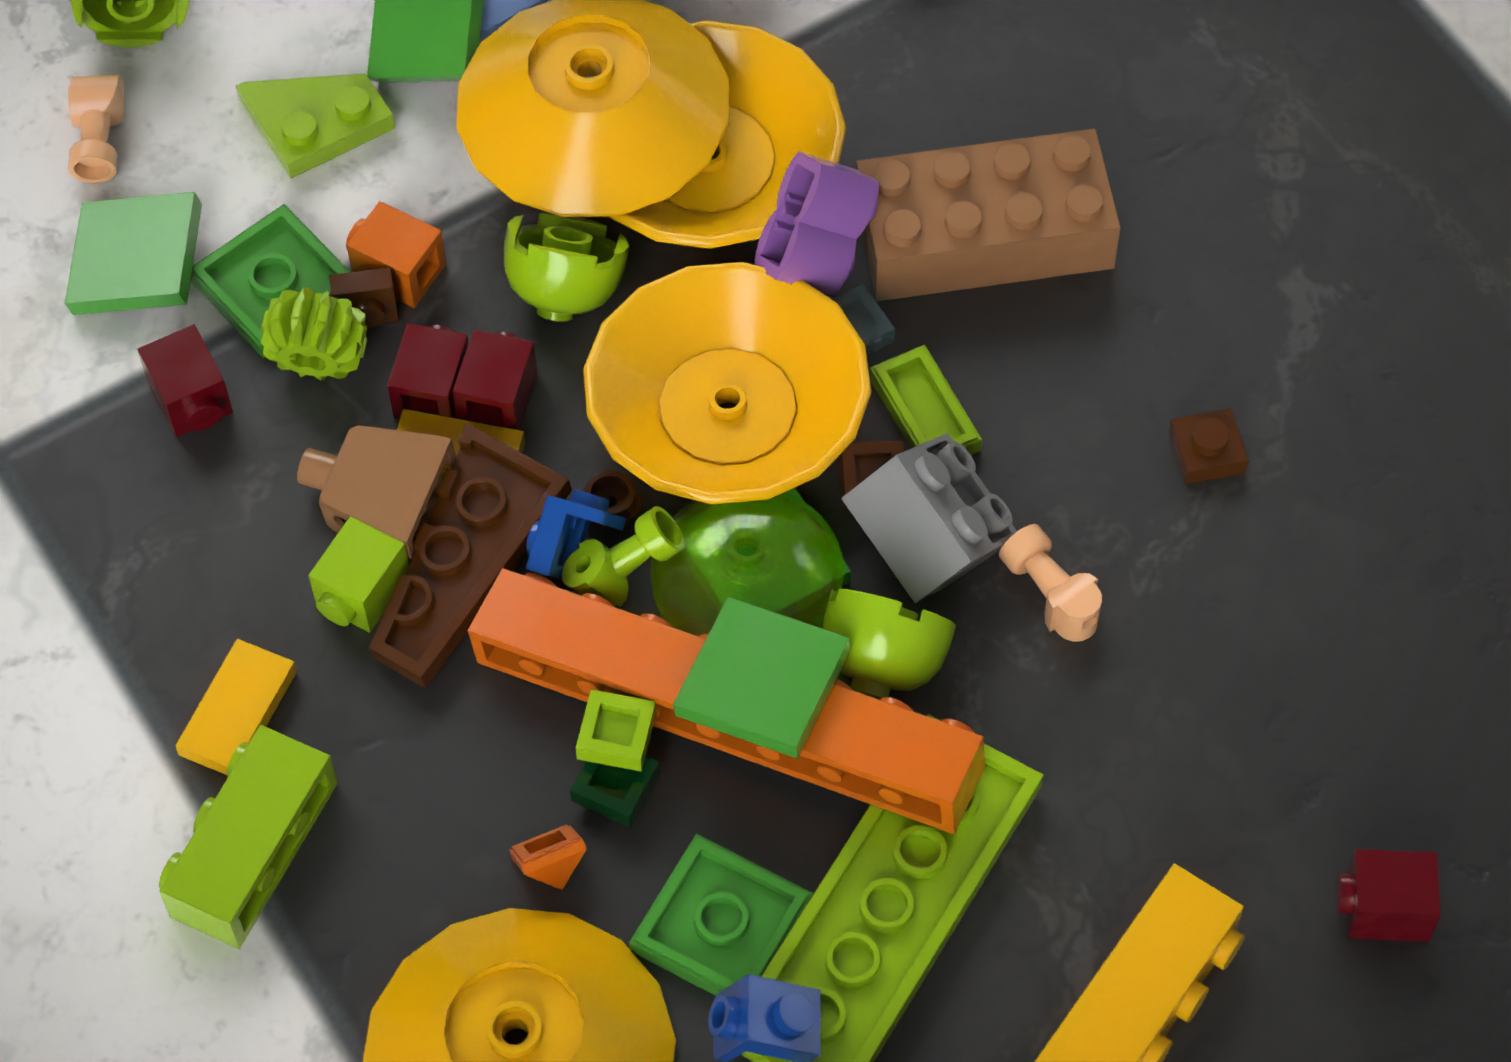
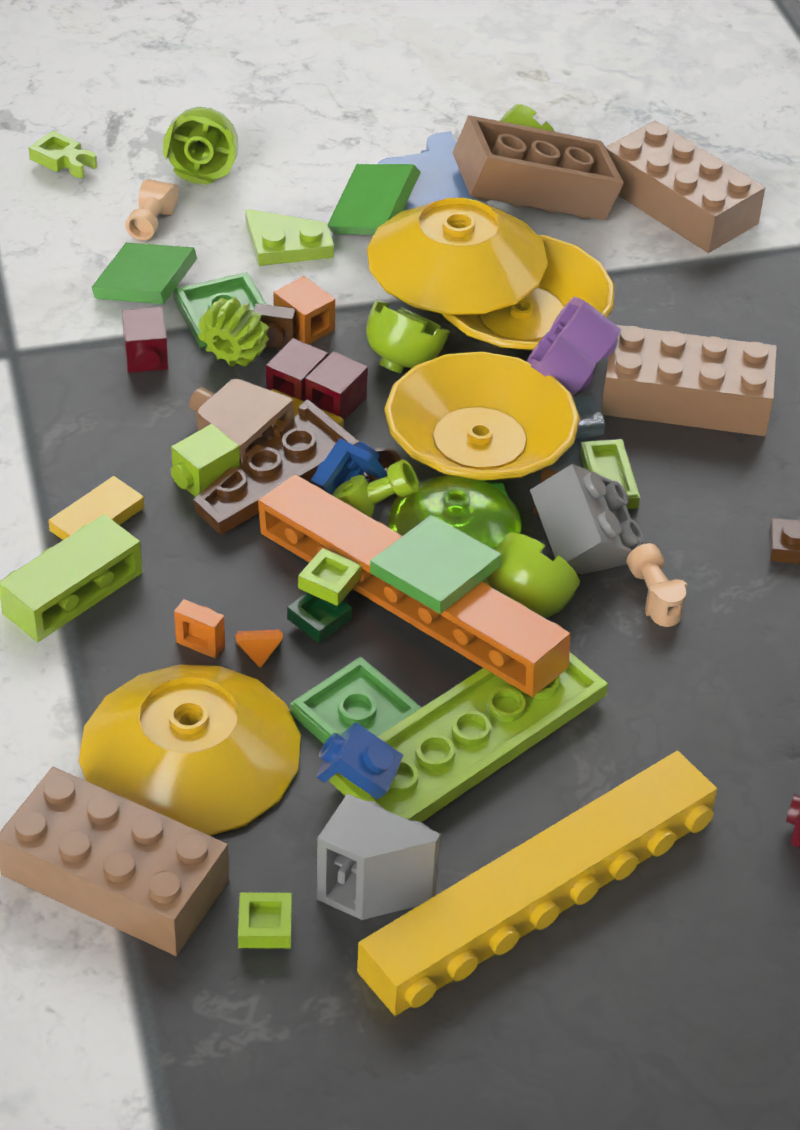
camera: 15 degrees right, 15 degrees down
(463, 862) = (199, 628): none -> orange plate

